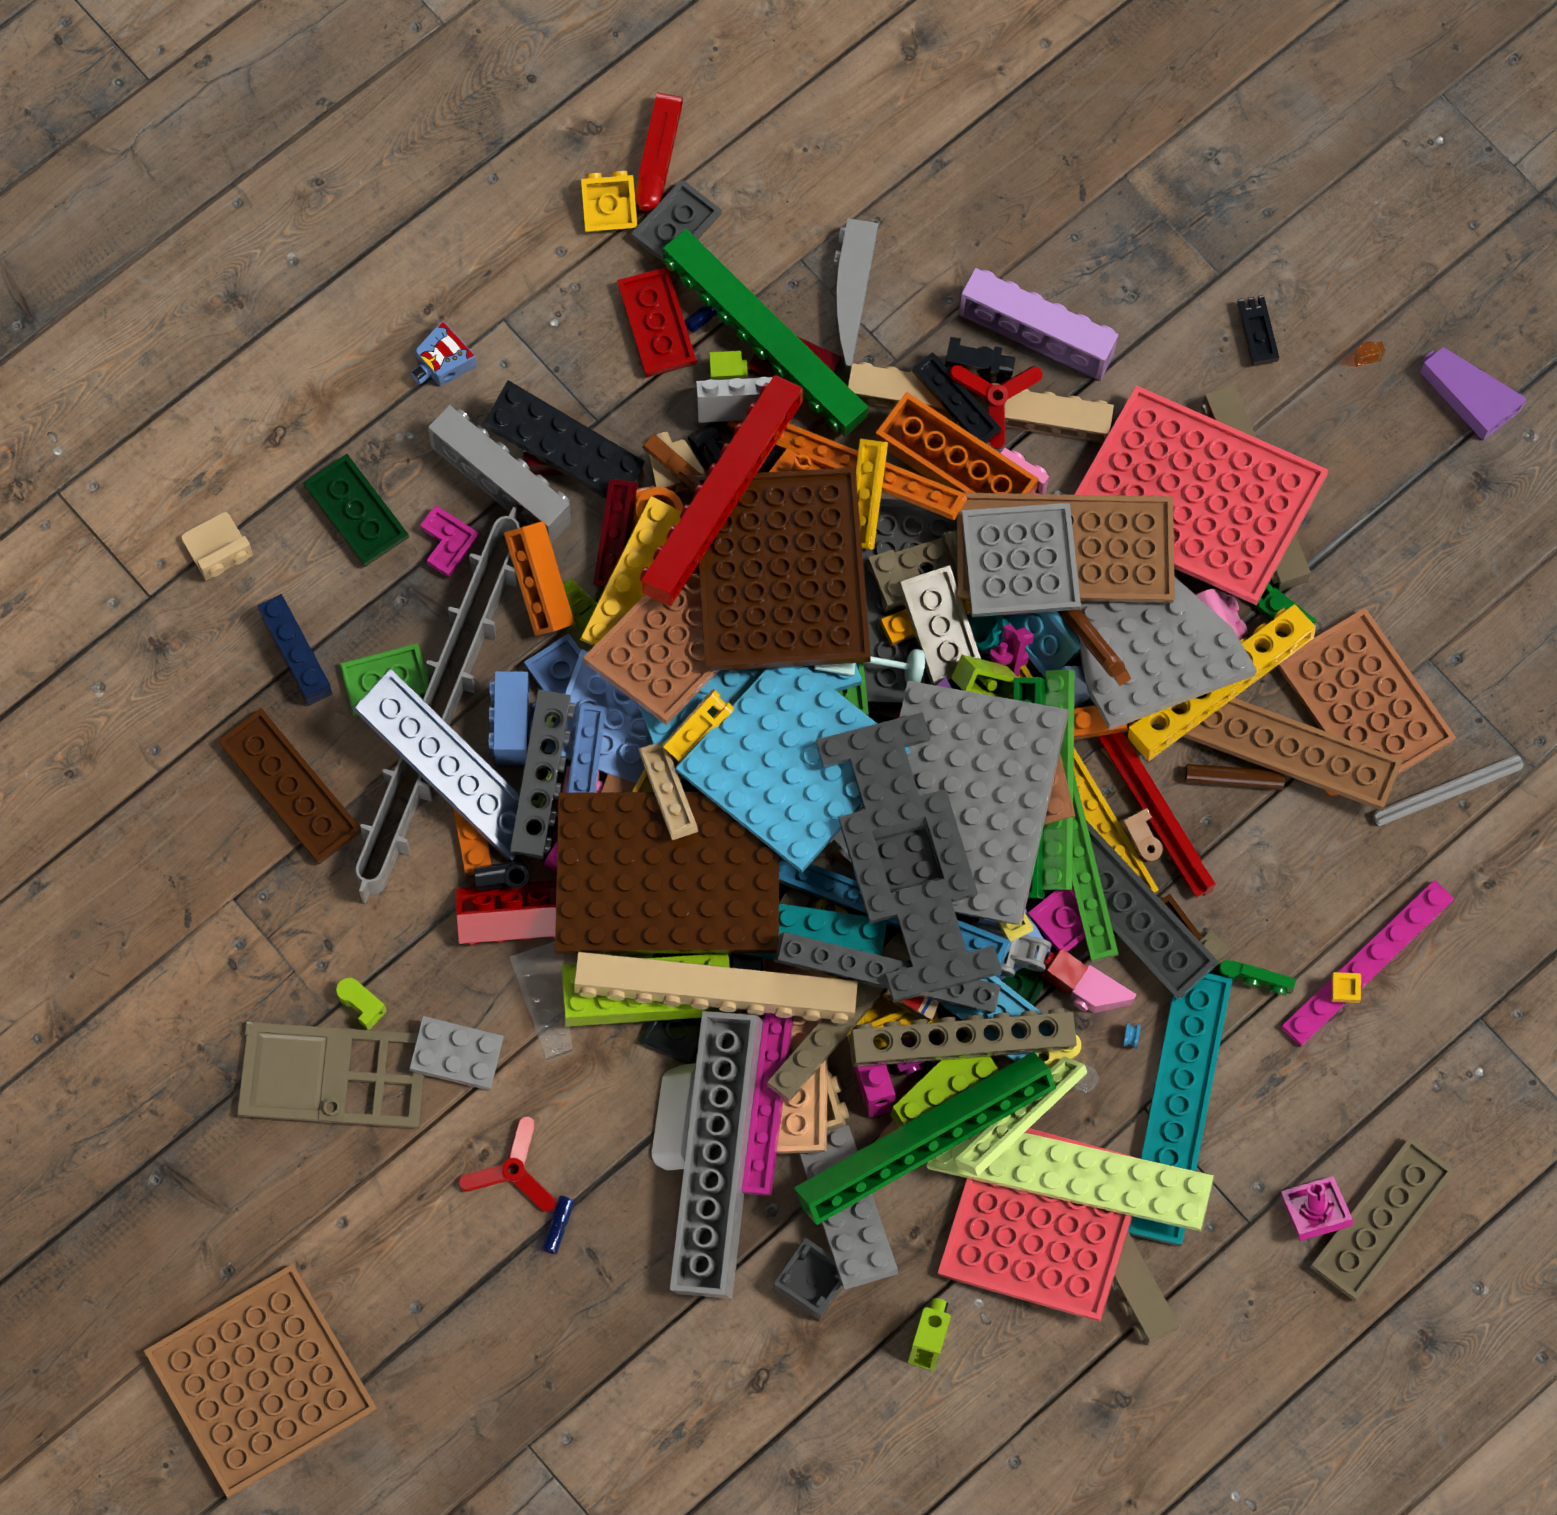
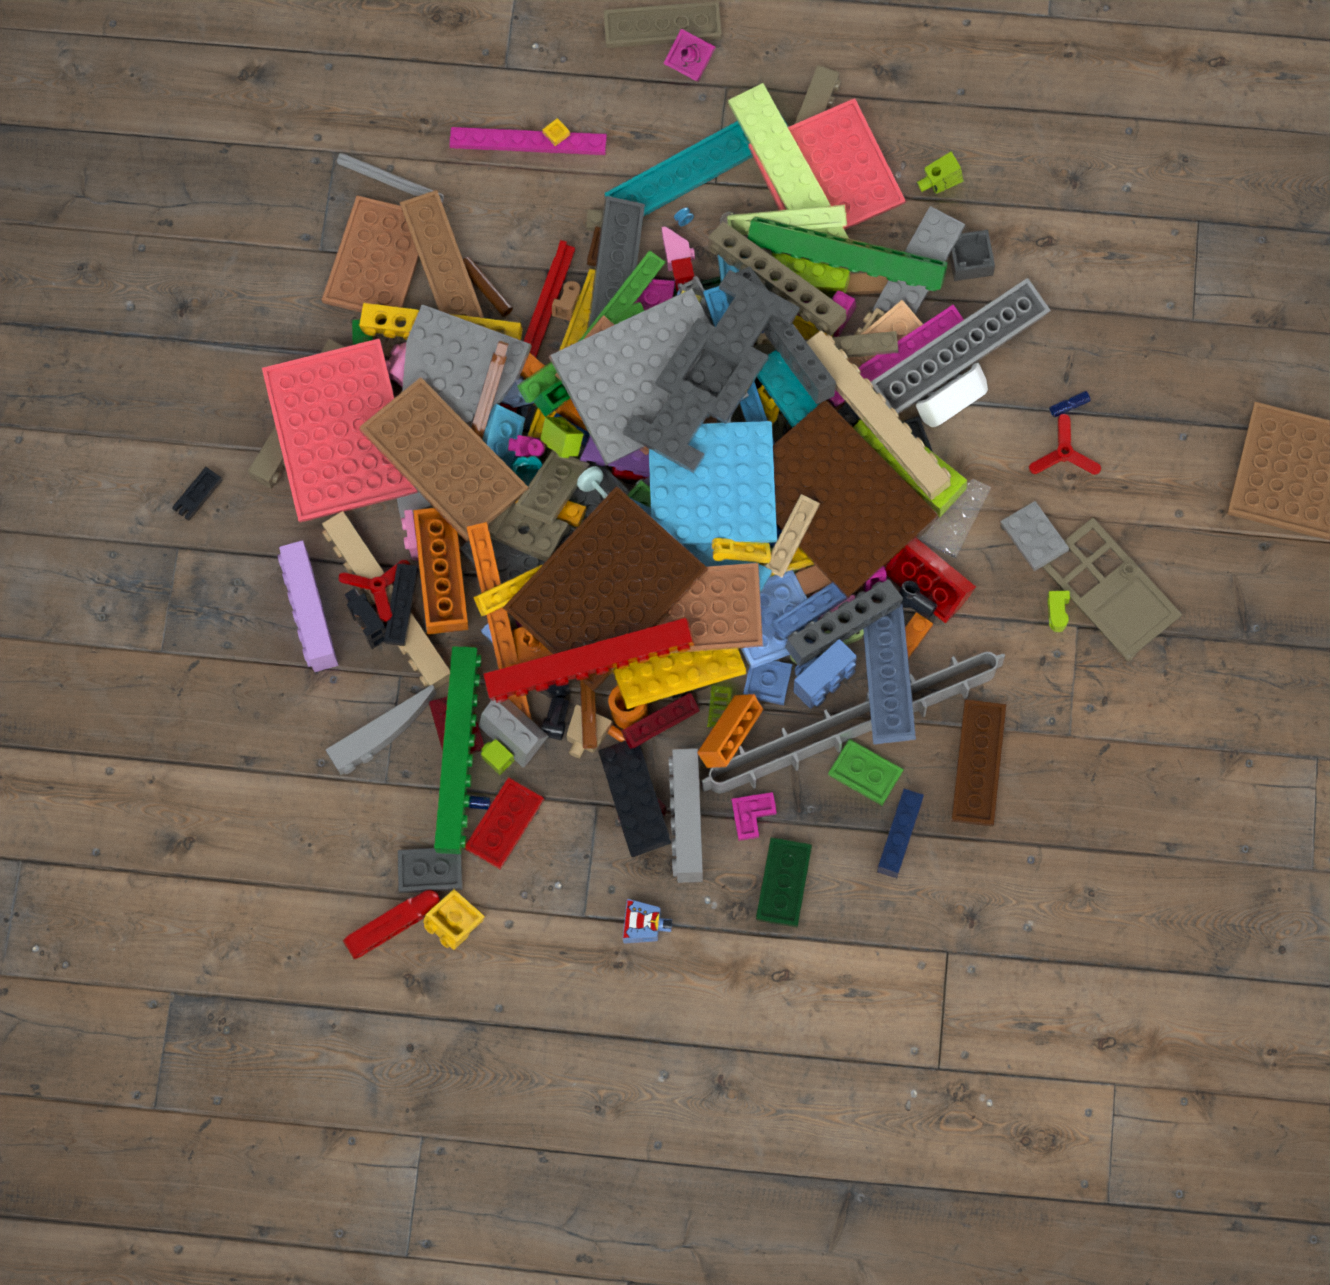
camera: 125 degrees left, 0 degrees up
(217, 545) = (882, 938): tan bracket -> none
(1020, 560) = (476, 468): light grey plate -> none
(1255, 976) = (590, 183): green hinge -> none
(1369, 353) = (157, 423): clear orange plate -> none
(1471, 392) = (133, 346): medium lavender slope -> none

